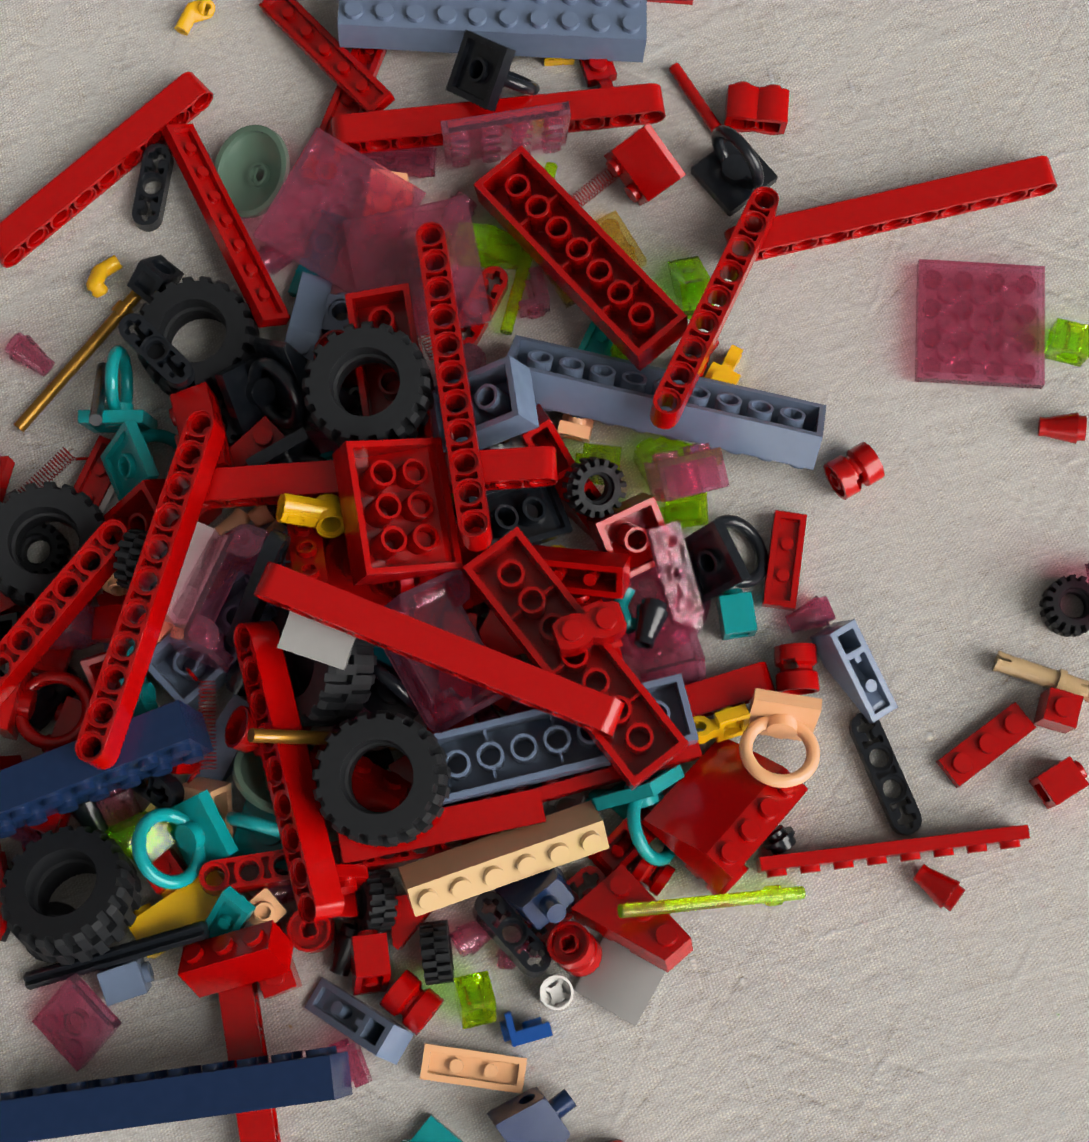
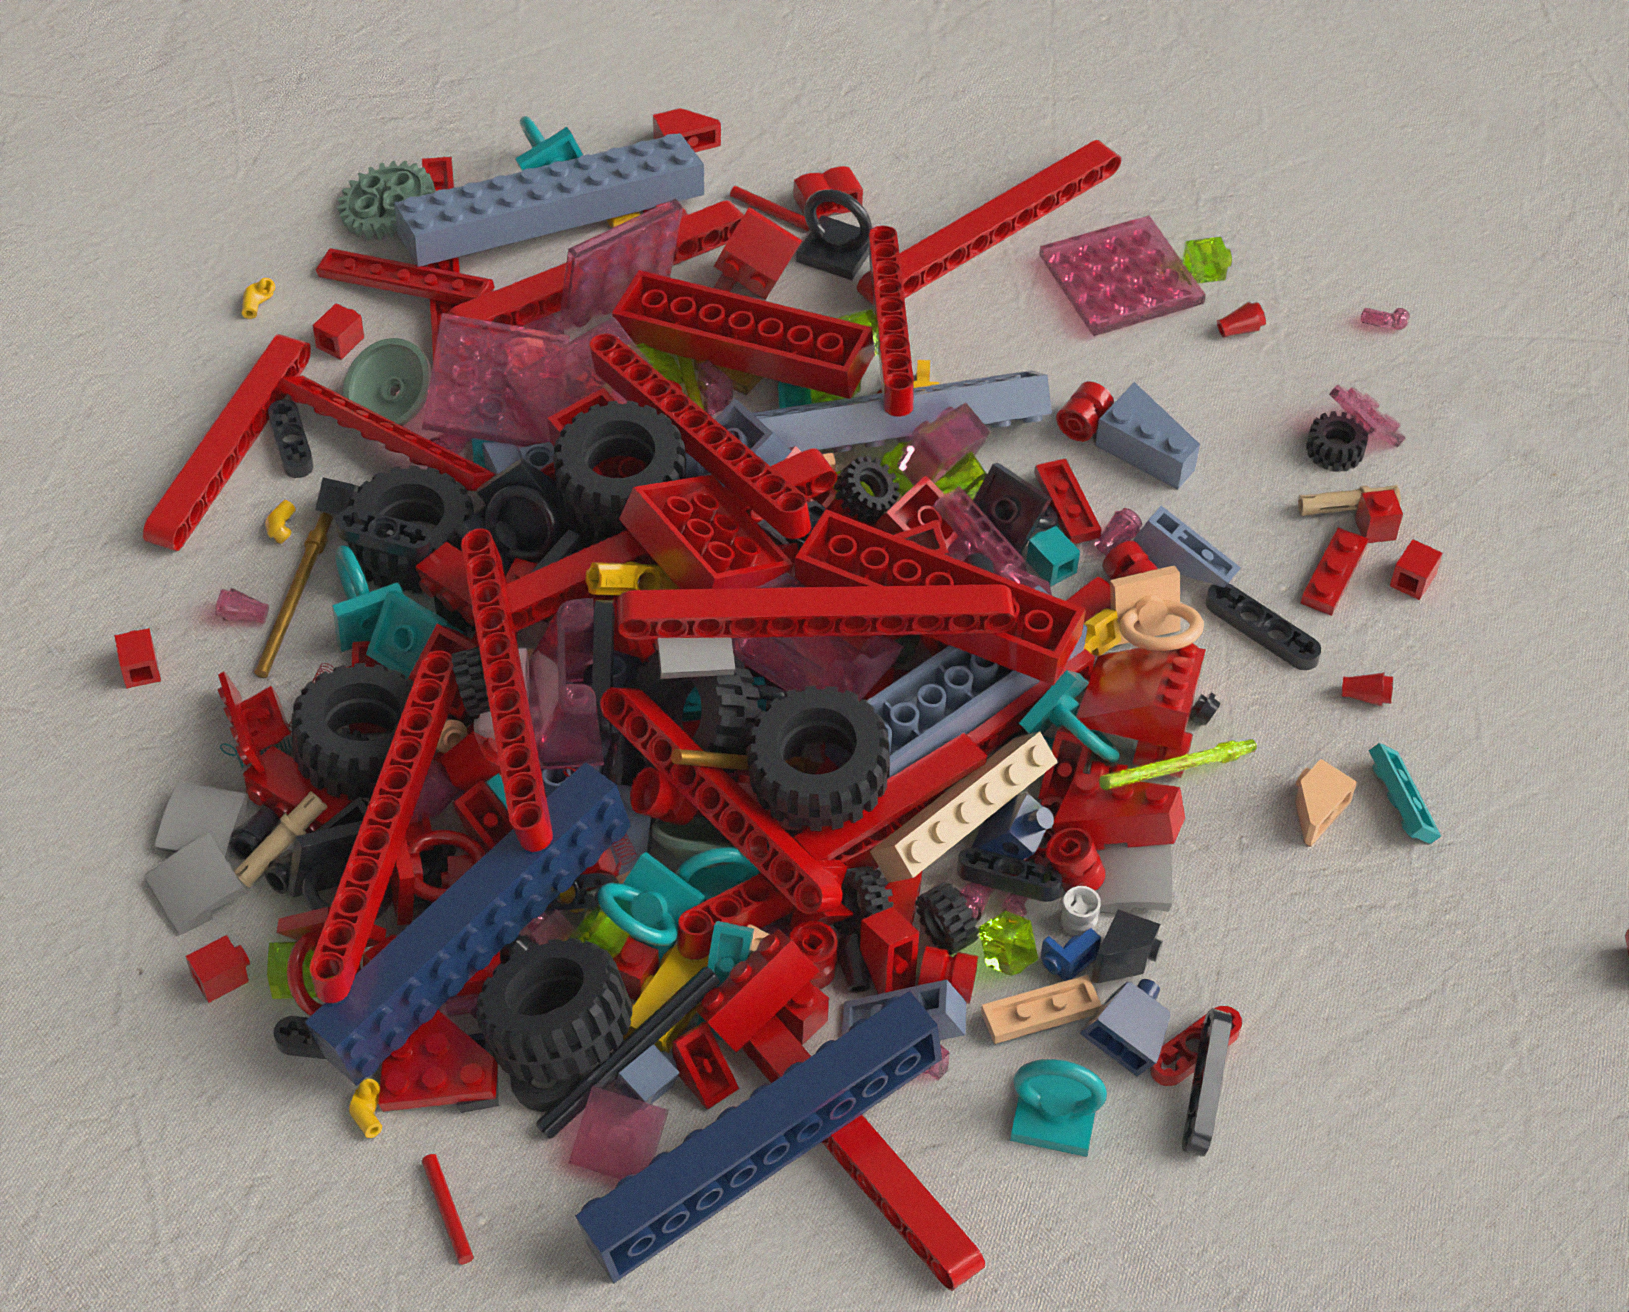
camera: 30 degrees left, 25 degrees down
(98, 396) = (343, 592): black bar -> none
(173, 994) = (703, 1066): none -> red slope
(244, 86) = (338, 331): none -> red brick
(483, 71) = (567, 223): black tile -> none
(572, 1051) = (1126, 948): none -> black slope
(598, 626) = (943, 548): red brick -> none
(826, 981) = (1321, 798): none -> light nougat slope
(895, 525) = (1148, 438): none -> sand blue wedge
(904, 1011) = (1404, 794): none -> teal plate
(907, 850) = (1300, 679): red plate -> none

